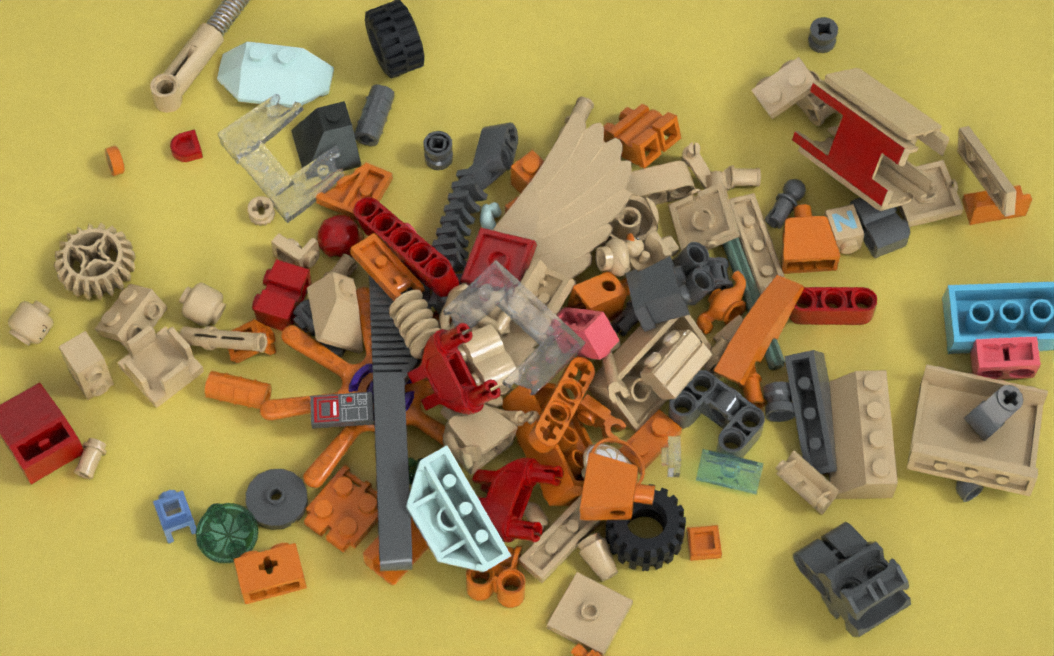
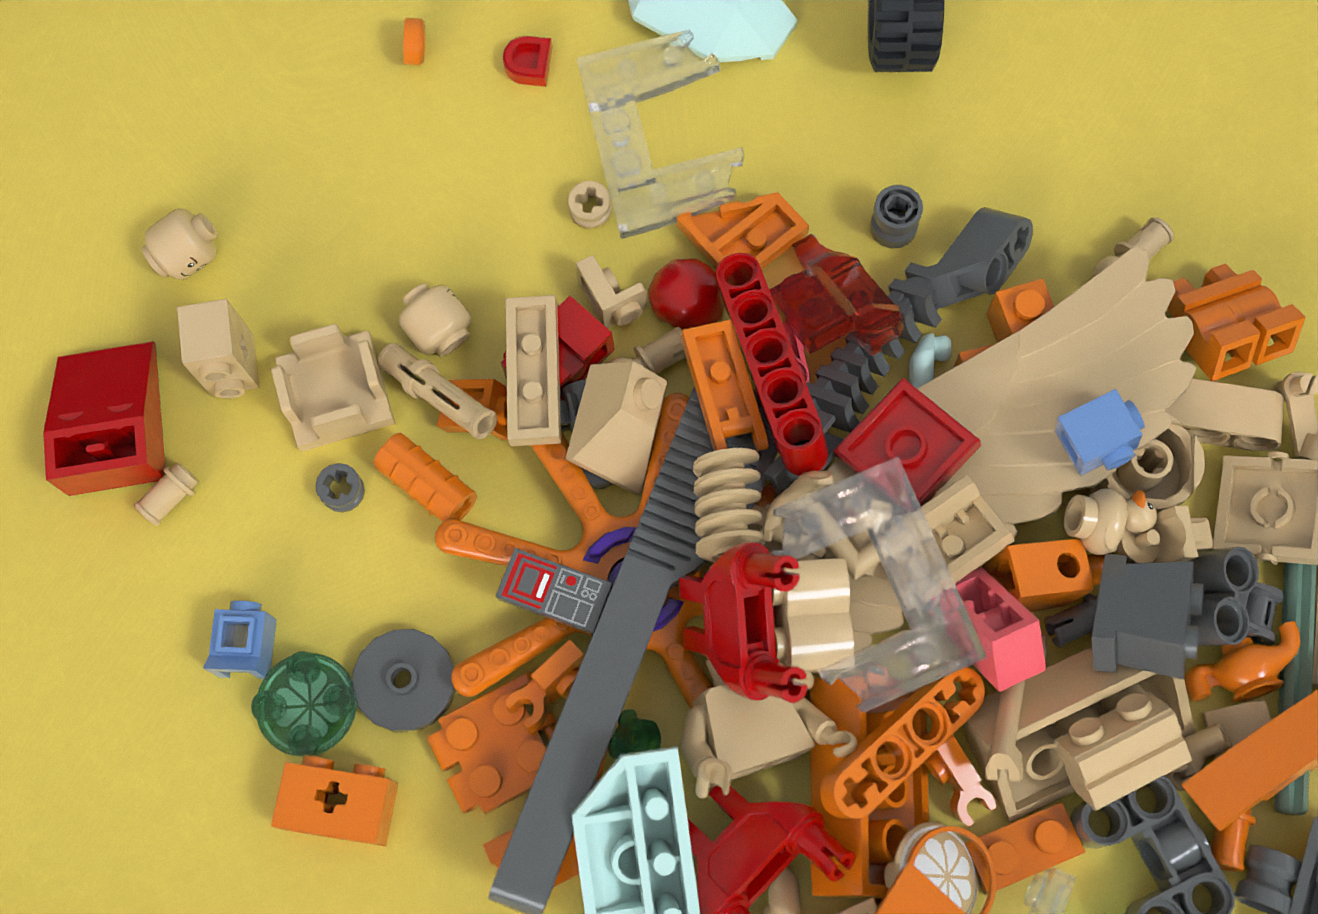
camera: 30 degrees right, 10 degrees up
(97, 271) = (325, 162): tan gear -> none
(131, 314) = (329, 291): tan bracket -> none
(181, 412) = (335, 473): none -> dark grey bush
(276, 303) = (532, 371): none -> tan plate
(324, 130) = (737, 116): pearl dark grey slope -> none
(361, 458) = (549, 682): none -> orange plate
(374, 115) = (824, 120): dark grey axle -> none
(424, 202) = (834, 299): none -> clear red plate
(595, 211) = (1101, 432): none -> medium blue brick

